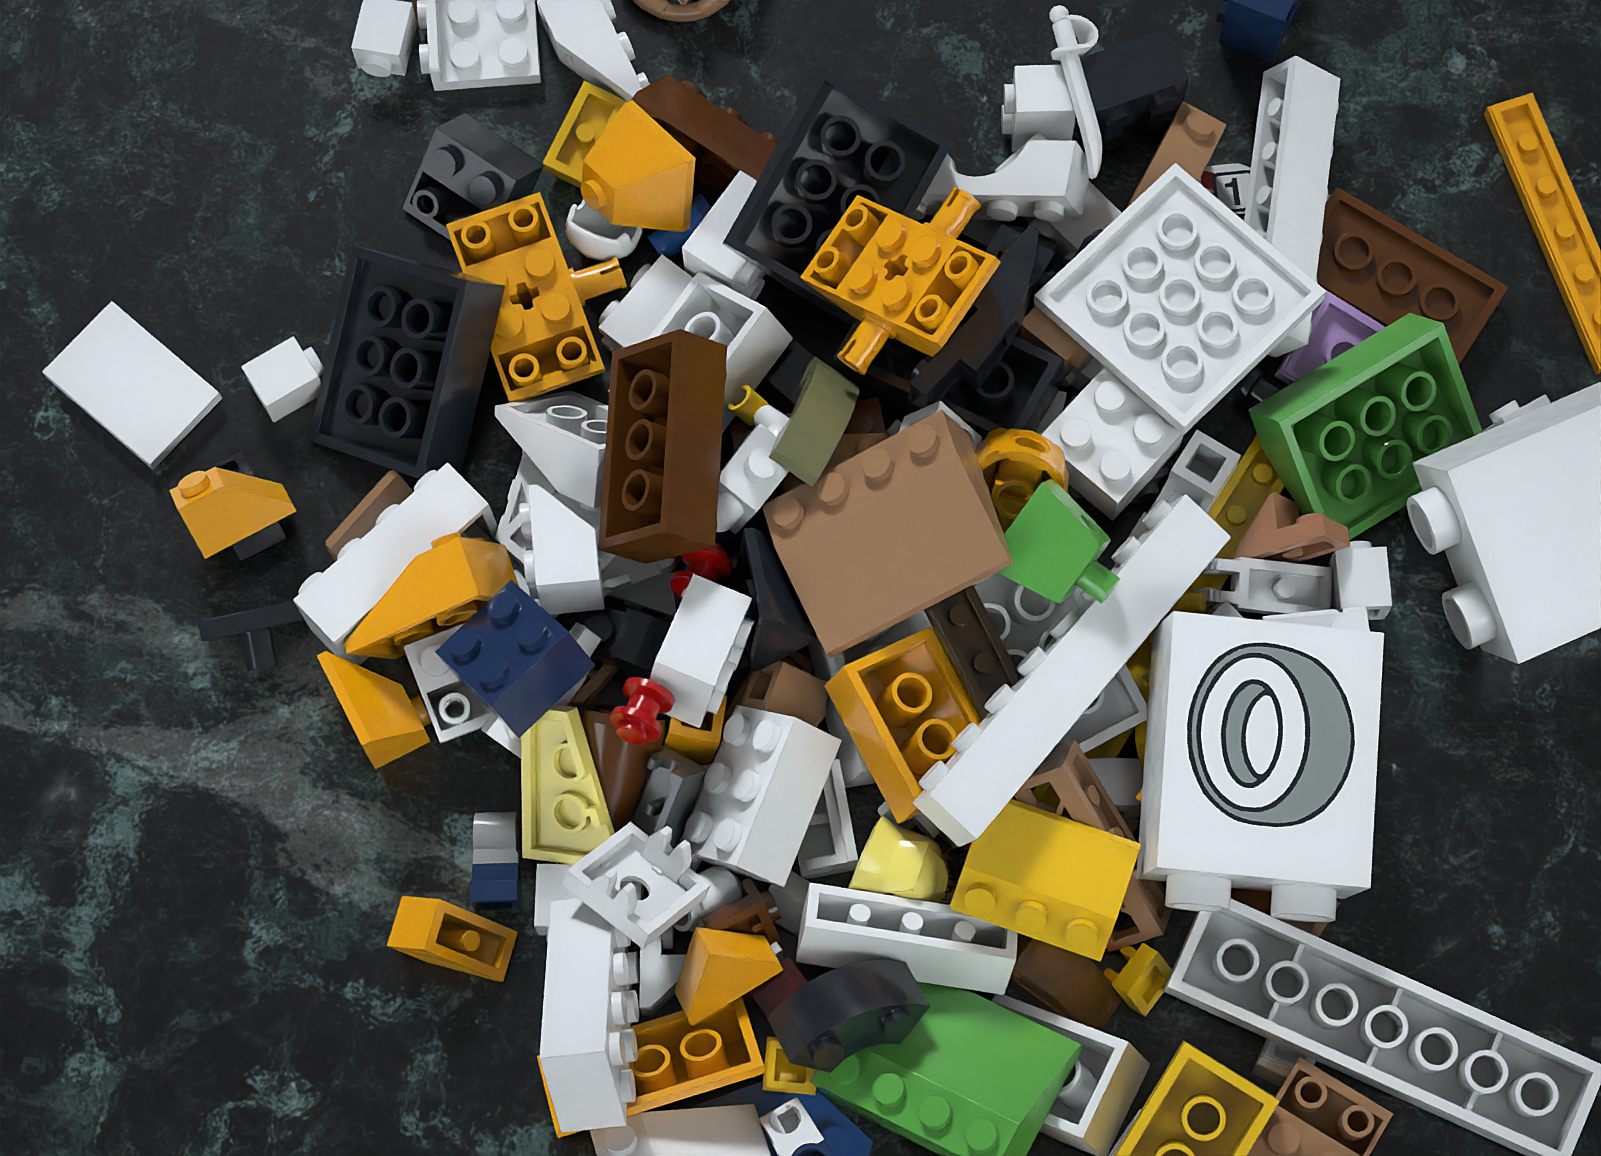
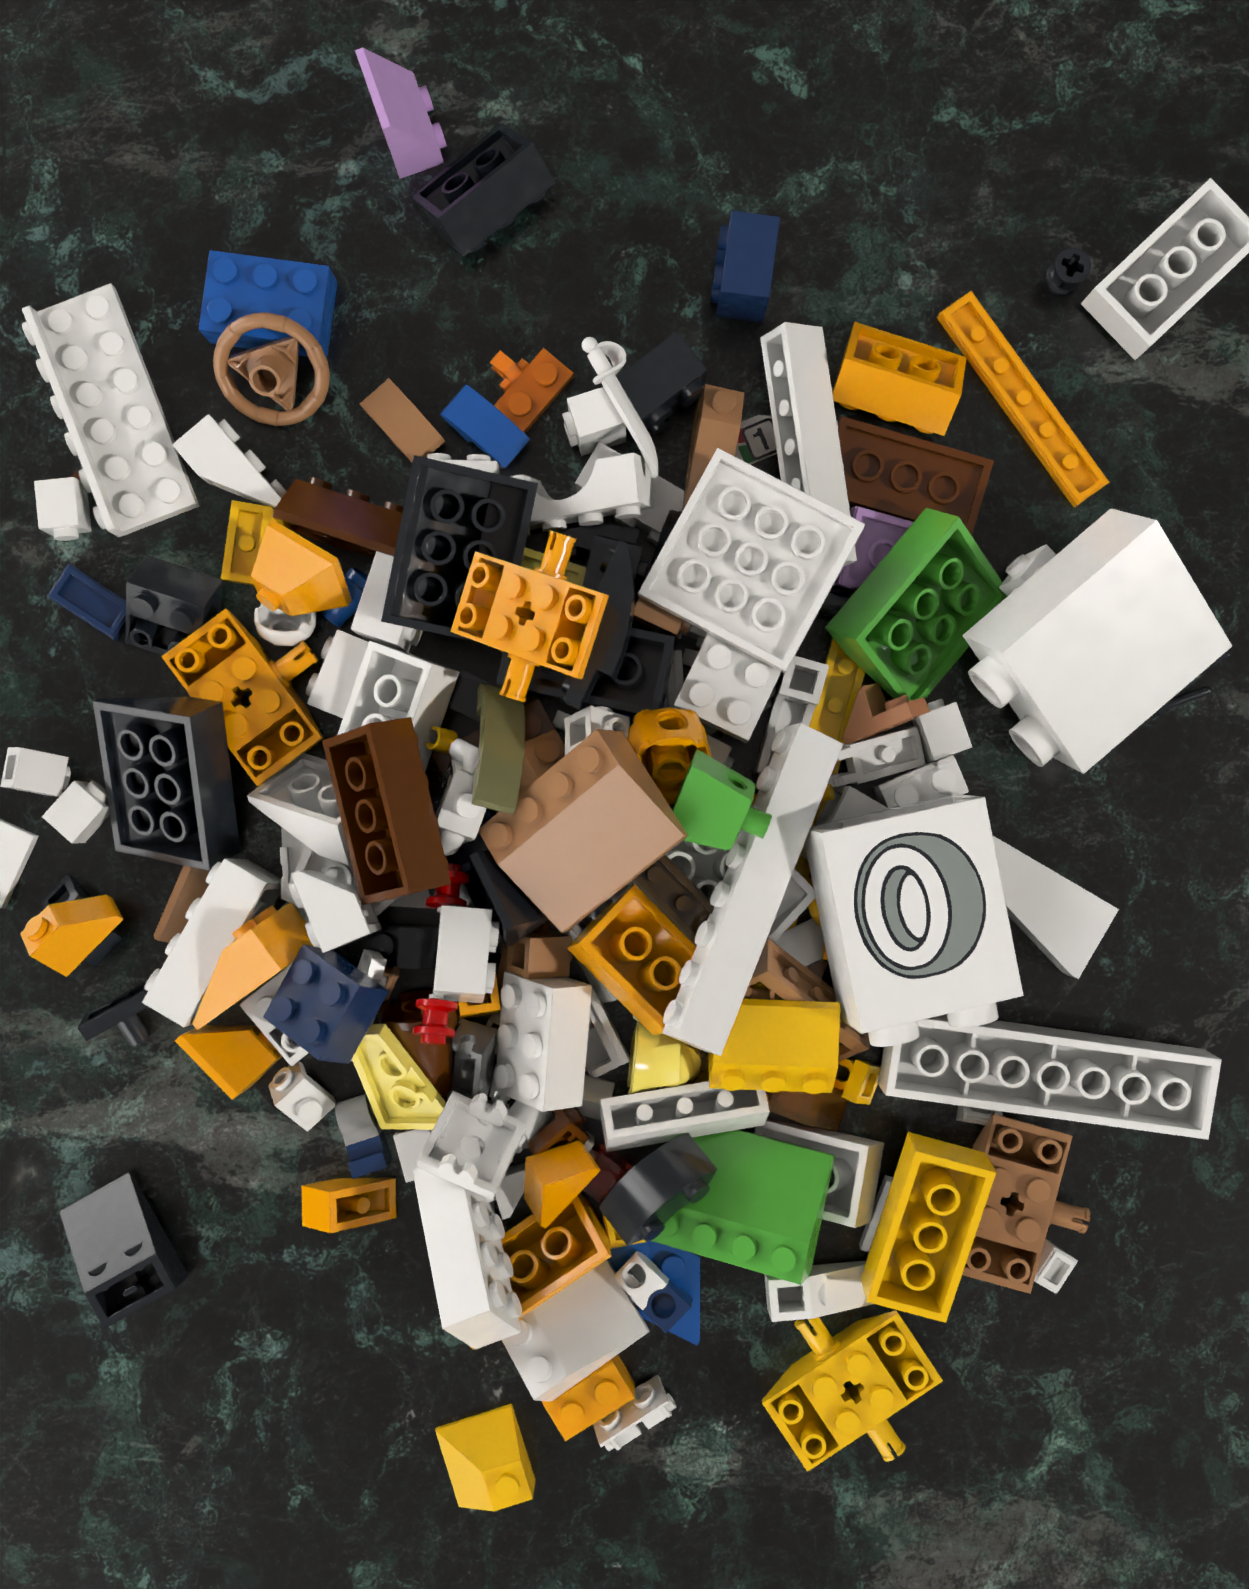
camera: 20 degrees left, 15 degrees up
(152, 911) = (120, 1250): none -> slope
(250, 316) = (35, 771): none -> white brick
(378, 151) = (90, 601): none -> dark blue tile
(435, 792) = (300, 1096): none -> white bracket
(807, 45) = (401, 421): none -> medium nougat slope
(907, 80) = (484, 426): none -> blue slope
(971, 57) = (529, 386): none -> orange hinge
(1416, 166) = (899, 379): none -> light orange slope
(1437, 829) = (1052, 910): none -> white slope

